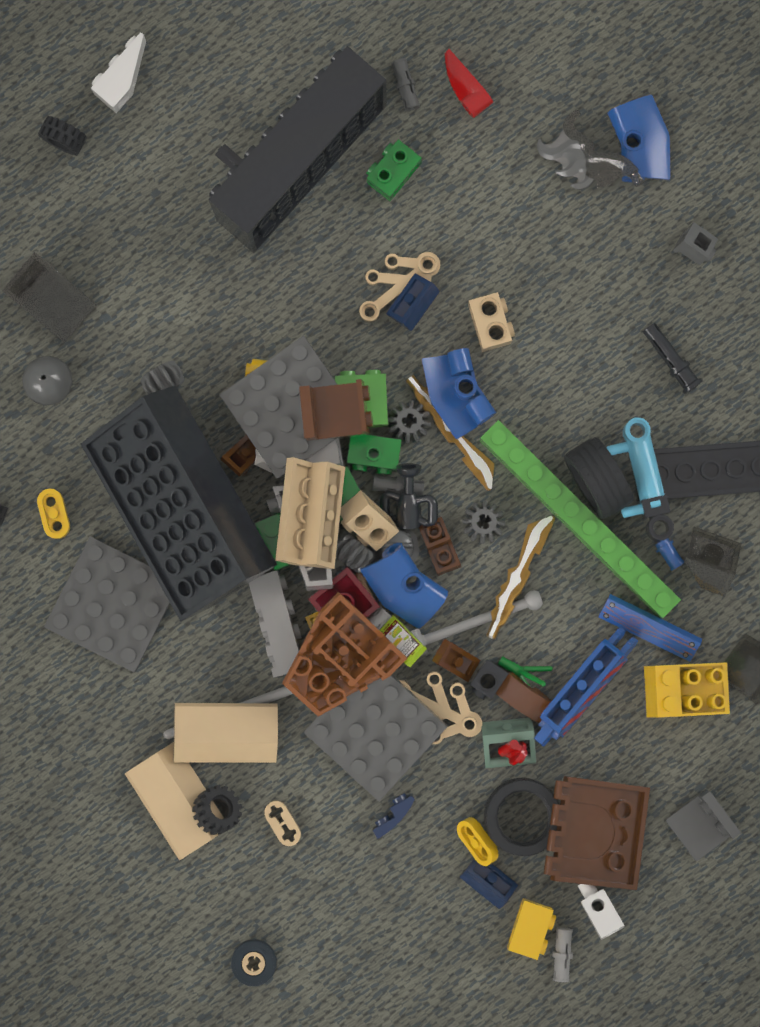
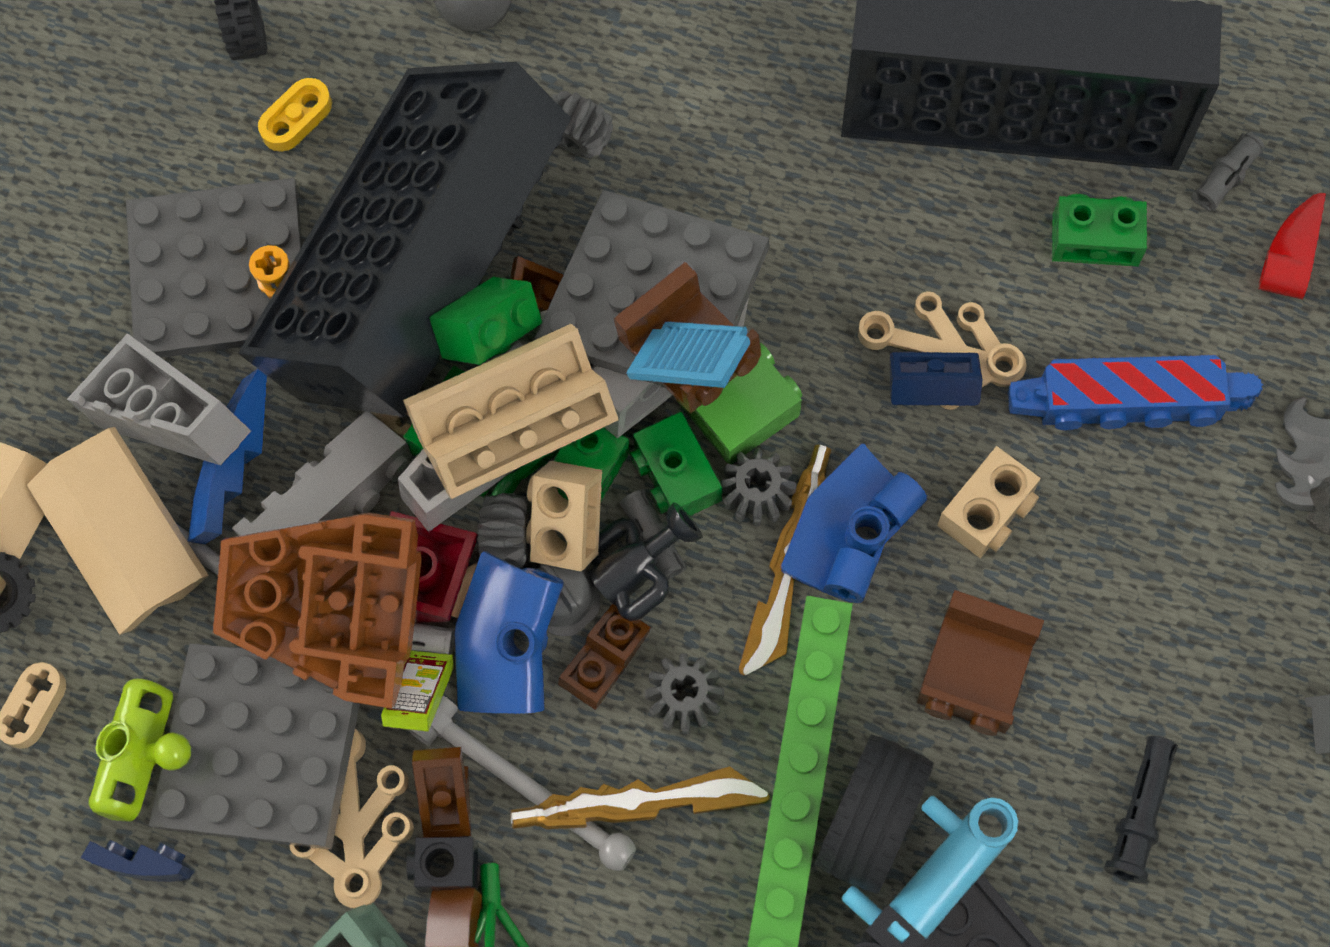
camera: 55 degrees right, 15 degrees down
(135, 581) = (265, 270): none -> light orange bush
(173, 677) = (157, 405): none -> light grey wedge
(217, 652) = (224, 482): none -> blue slope
(256, 495) = (486, 320): none -> green brick
(335, 777) = (132, 748): none -> lime piece
(347, 415) = (690, 354): none -> dark azure window
(482, 216) = (1134, 391): none -> blue hinge
(559, 382) = (979, 663): none -> reddish brown panel

